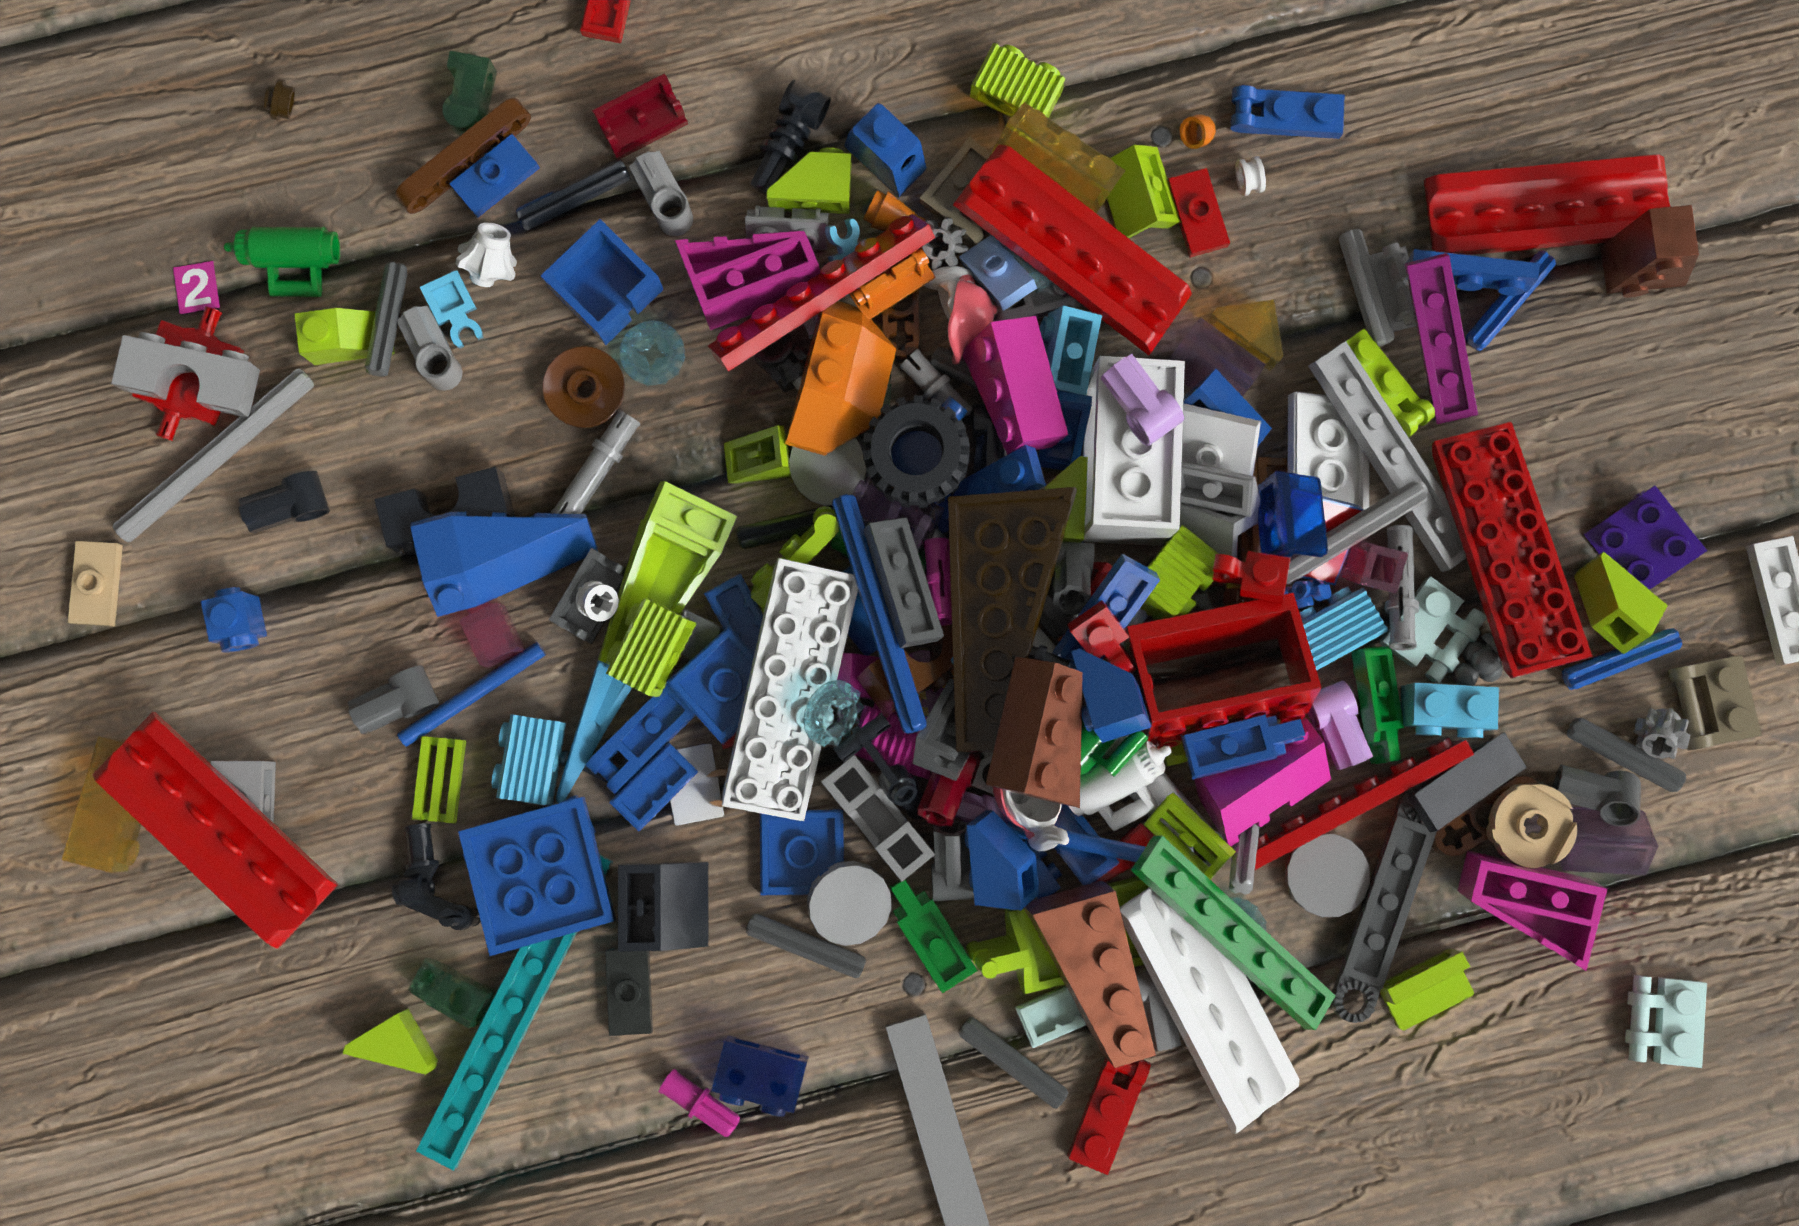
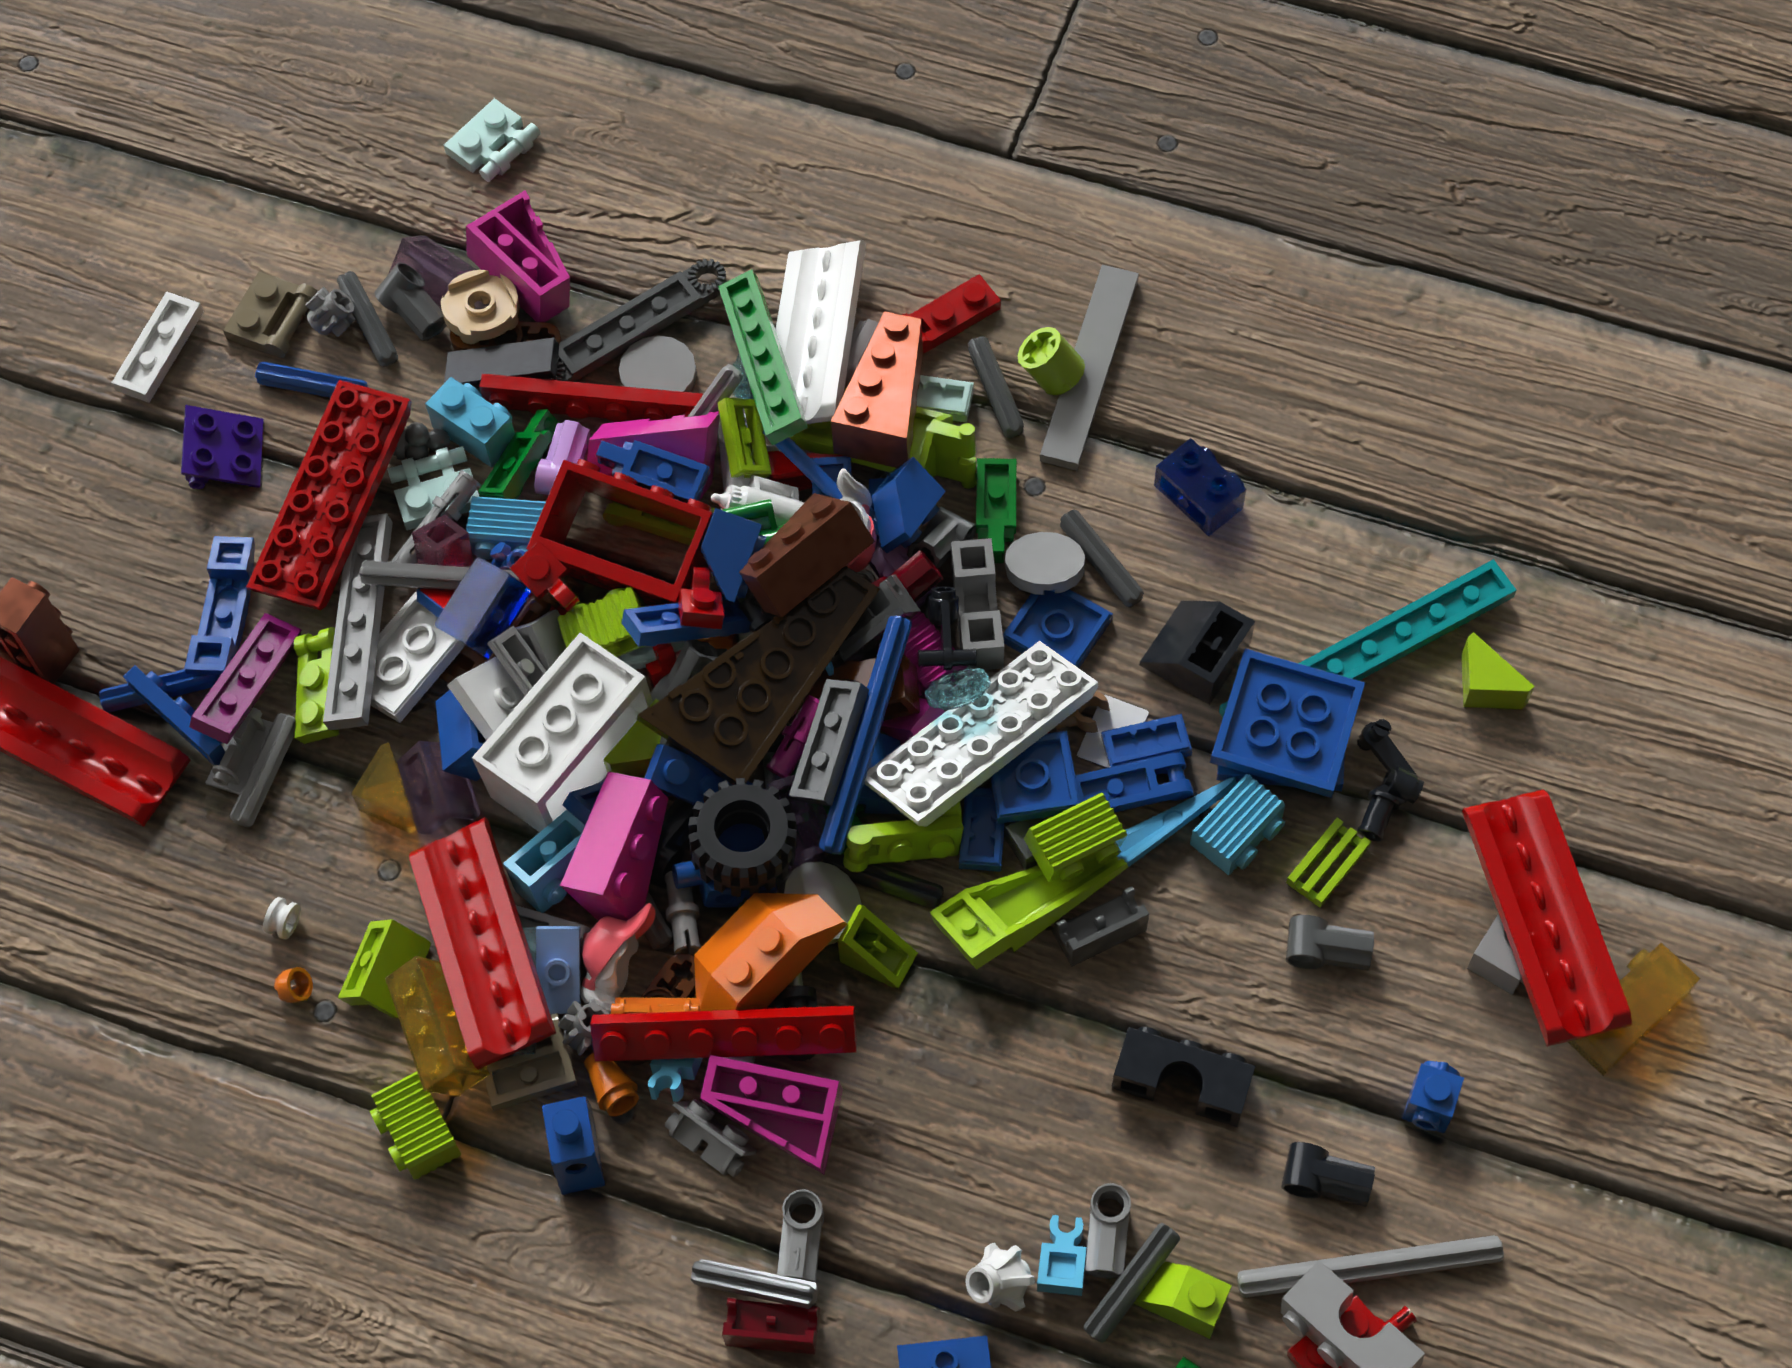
camera: 140 degrees left, 20 degrees down
(95, 583) = (1549, 1219): tan plate -> none
(452, 992) = (1416, 688): clear green leg -> none
(471, 694) = (1252, 914): blue bar -> none
(484, 557) = (1182, 1004): blue wedge -> none
(491, 634) = (1207, 946): clear pink brick -> none
(572, 194) = (883, 1297): black axle -> none
(572, 371) = (993, 1086): reddish brown dish -> none
(588, 609) = (1097, 905): white bush -> none
(598, 464) = (1009, 1038): light grey pin -> none
(602, 281) = (911, 1187): blue piece -> none
(629, 992) = (1272, 606): pearl dark grey plate -> none
(641, 339) = (906, 1083): clear light blue gear -> none
(671, 134) = (755, 1283): none -> dark grey axle
(699, 1103) = (1263, 497): dark pink axle -> none
(799, 109) = (619, 1227): black piece -> none
(815, 182) = (656, 1154): lime slope -> none
(974, 1114) = (1051, 361): none -> lime piece
(1148, 409) = (532, 729): lavender piece -> none
(1198, 213) = (348, 920): red plate -> none
(1288, 113) = (203, 955): blue plate -> none
(1427, 988) = (644, 258): lime panel -> none
(1514, 397) = (224, 606): none -> blue slope
(1618, 603) = (282, 413): lime slope -> none

